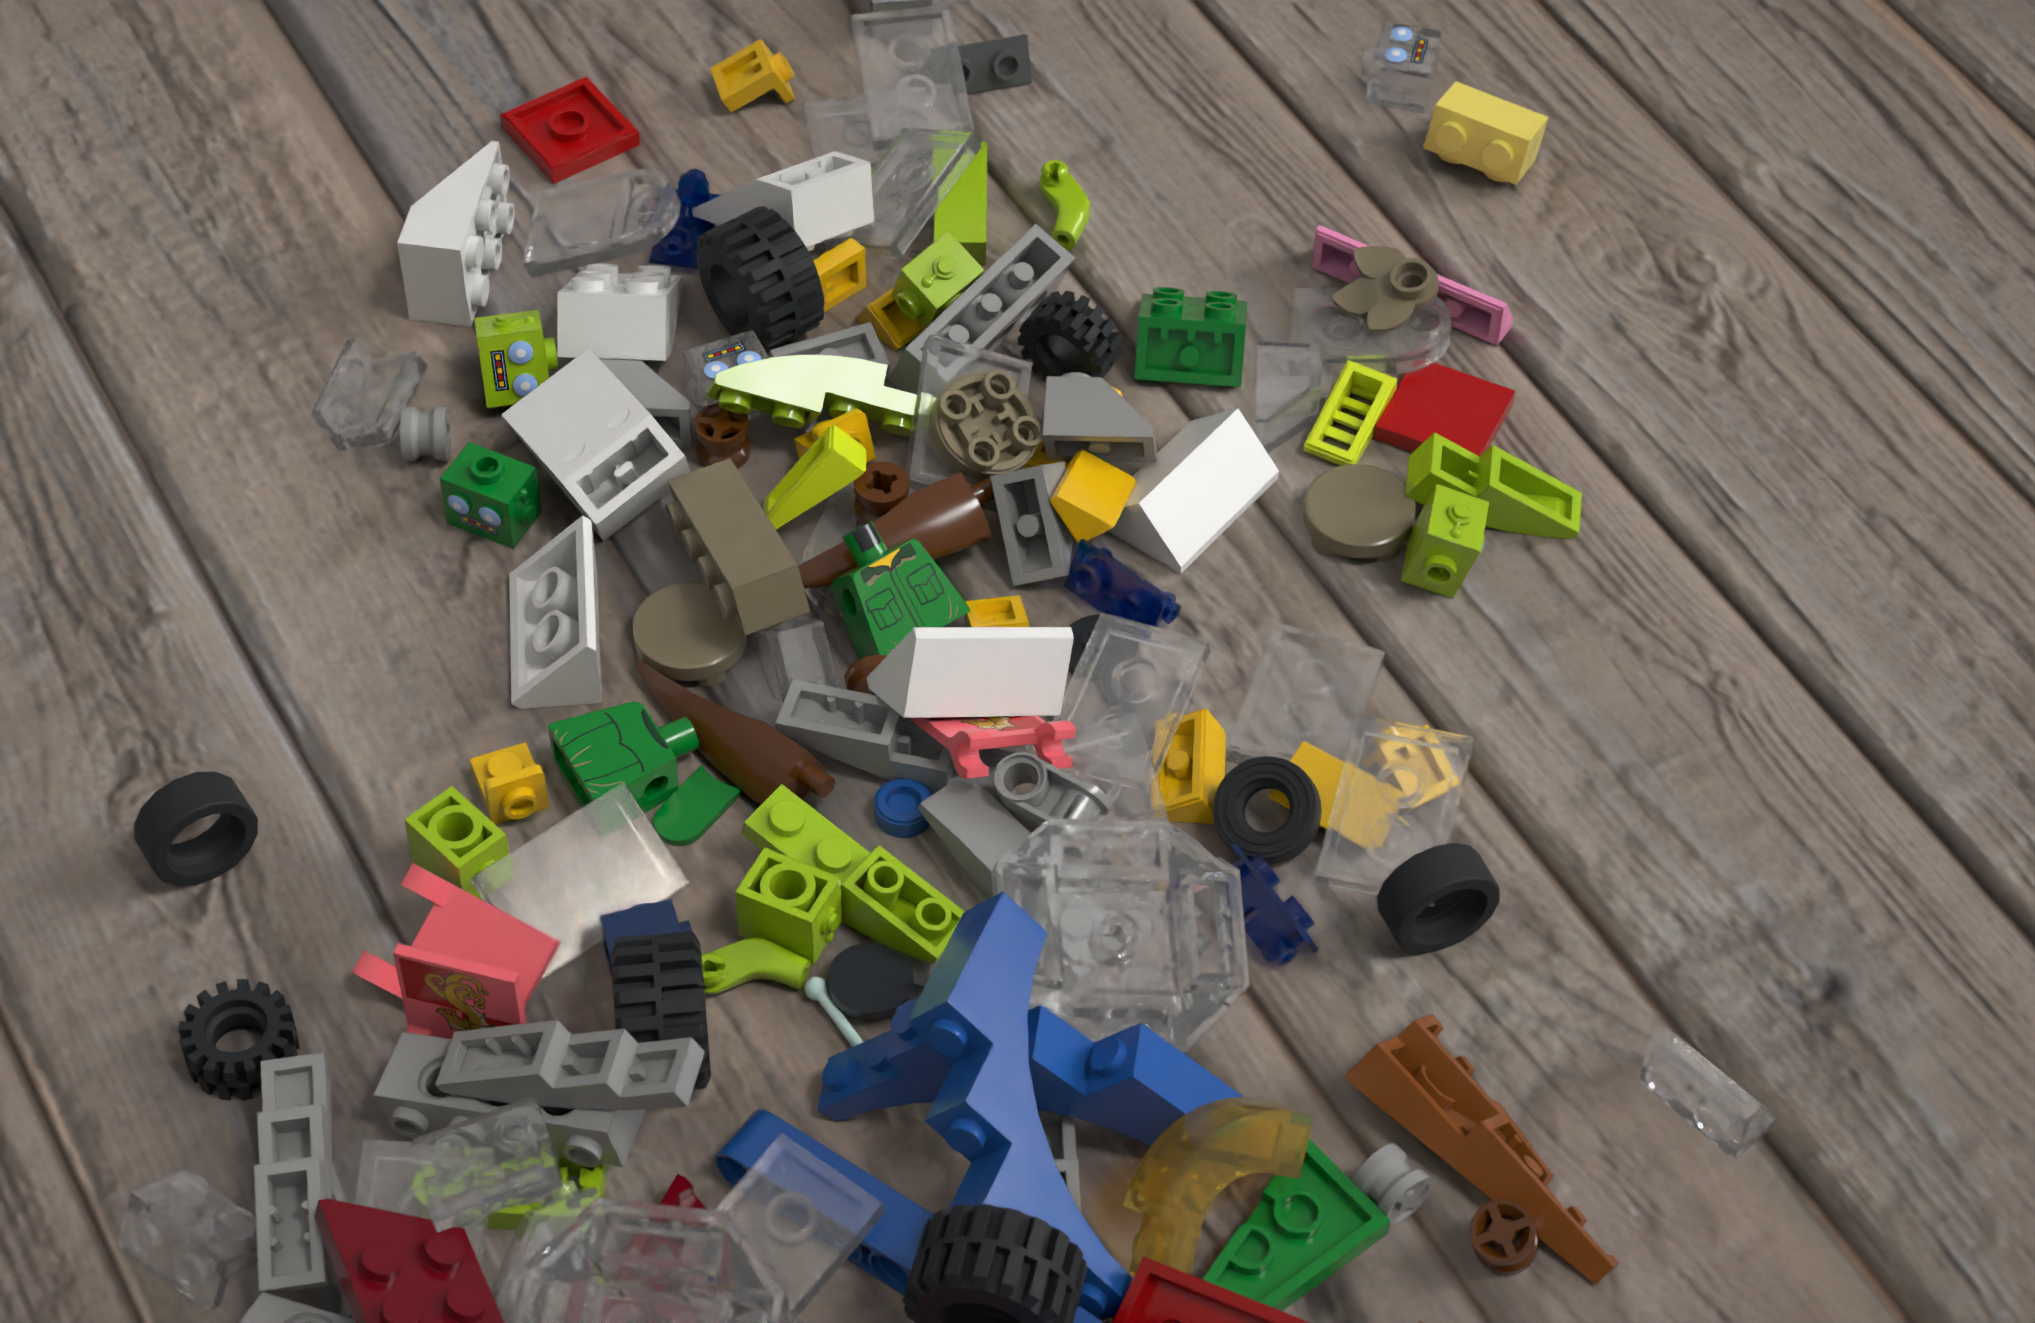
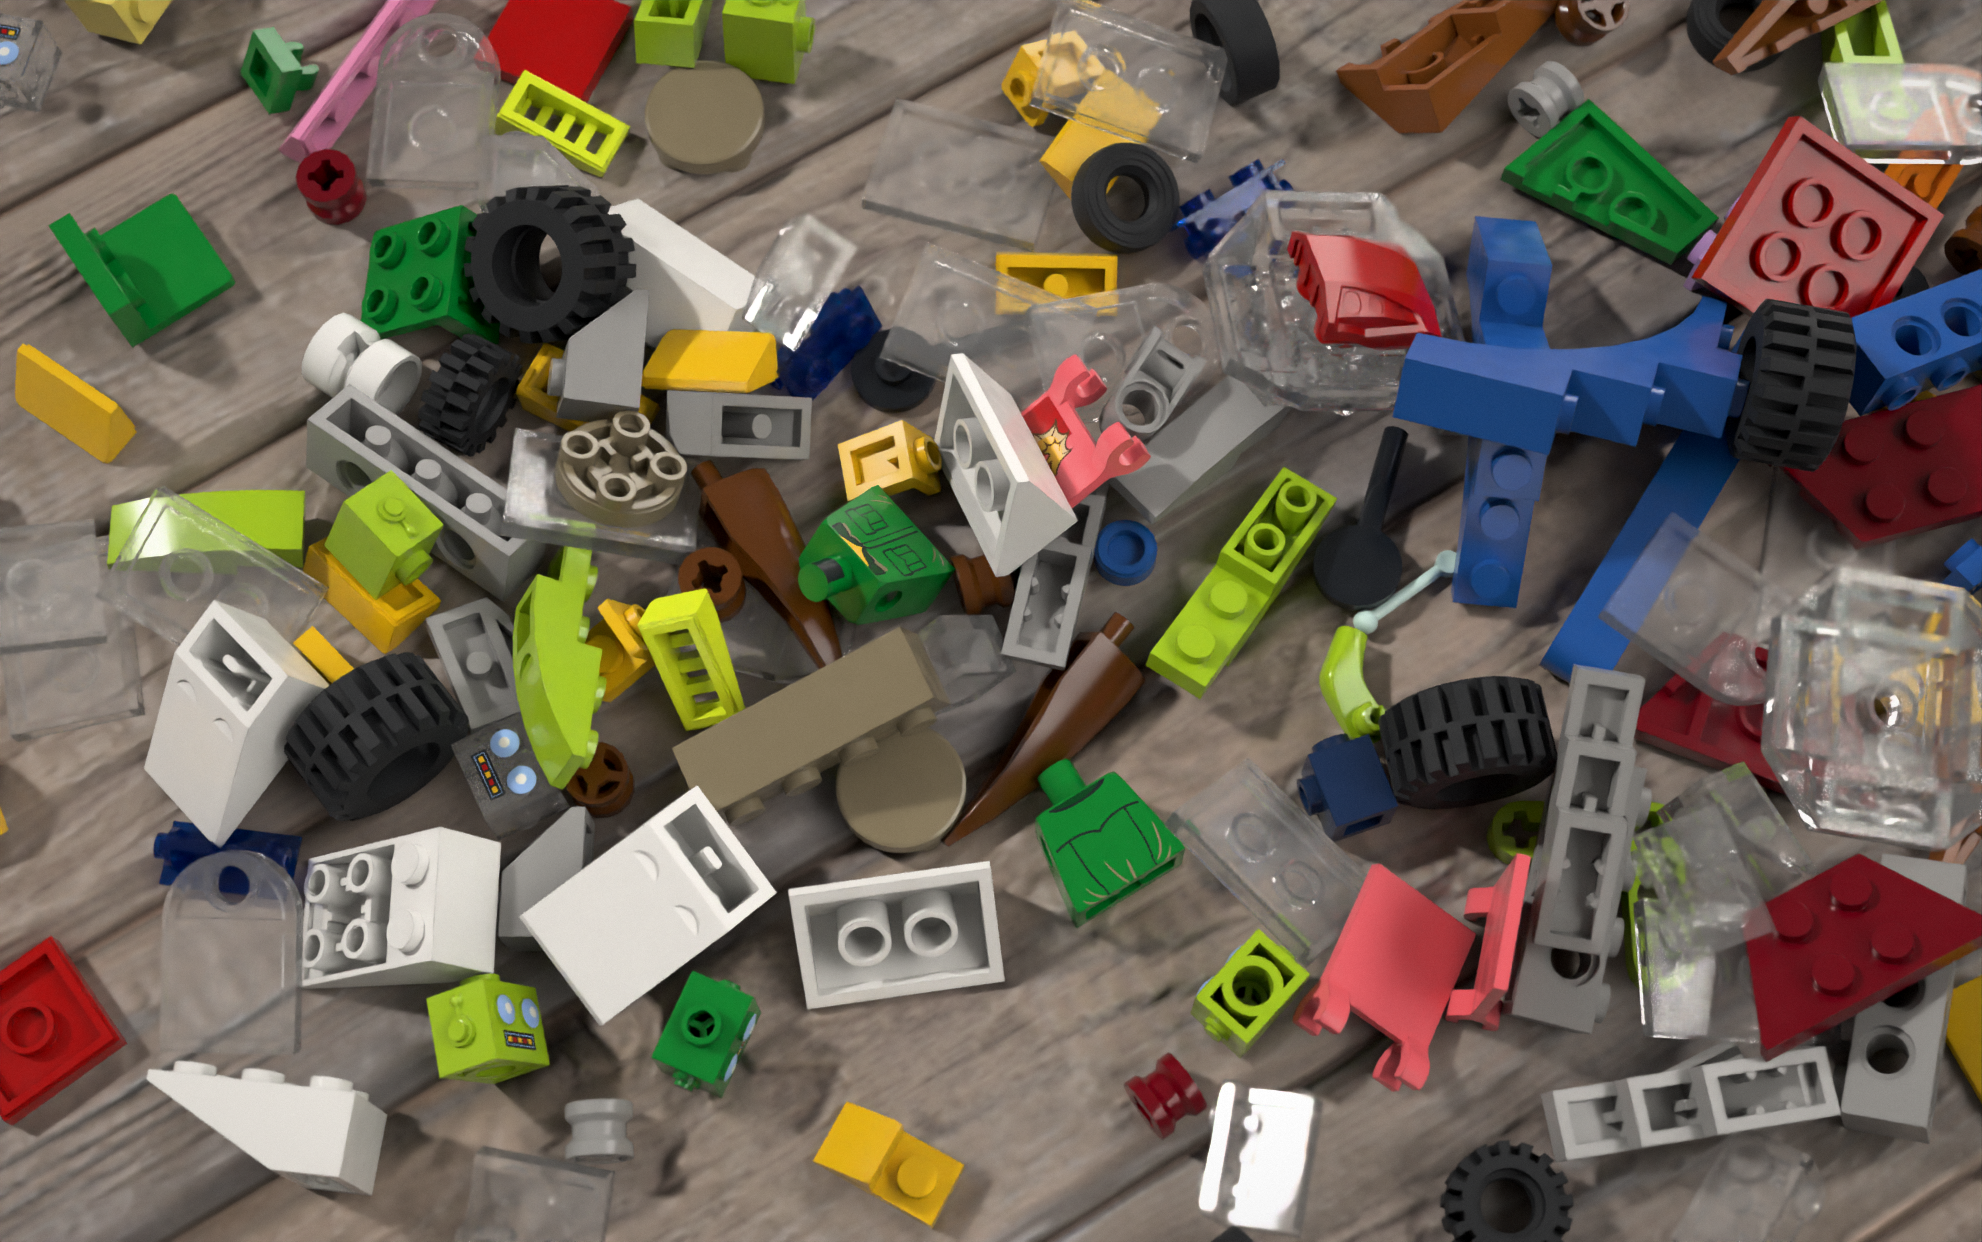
camera: 90 degrees left, 20 degrees up
(318, 853) = (1259, 1159): none -> clear bracket
(367, 620) = (889, 1163): none -> yellow slope
(384, 795) = (1165, 1096): none -> dark red wheel
(510, 783) = (1127, 963): yellow bracket -> none
(693, 808) = (1145, 768): green piece -> none
(789, 904) = (1294, 640): lime head -> none
(1067, 200) = (209, 418): lime arm -> none
(1088, 125) = (70, 405): none -> yellow slope
(1109, 274) = (354, 354): none -> white wheel
(1121, 929) = (1362, 290): none -> red slope
(1175, 555) = (796, 279): none -> clear slope
(1189, 379) = (508, 265): none -> black tyre
(1198, 1160) = (1589, 233): clear yellow arch -> none
(1199, 152) = (147, 267): none -> green bracket
(1284, 266) = (340, 200): none -> dark red wheel
(1383, 288) = (395, 80): dark tan plate -> none
(1401, 226) = (275, 71): none -> green tile

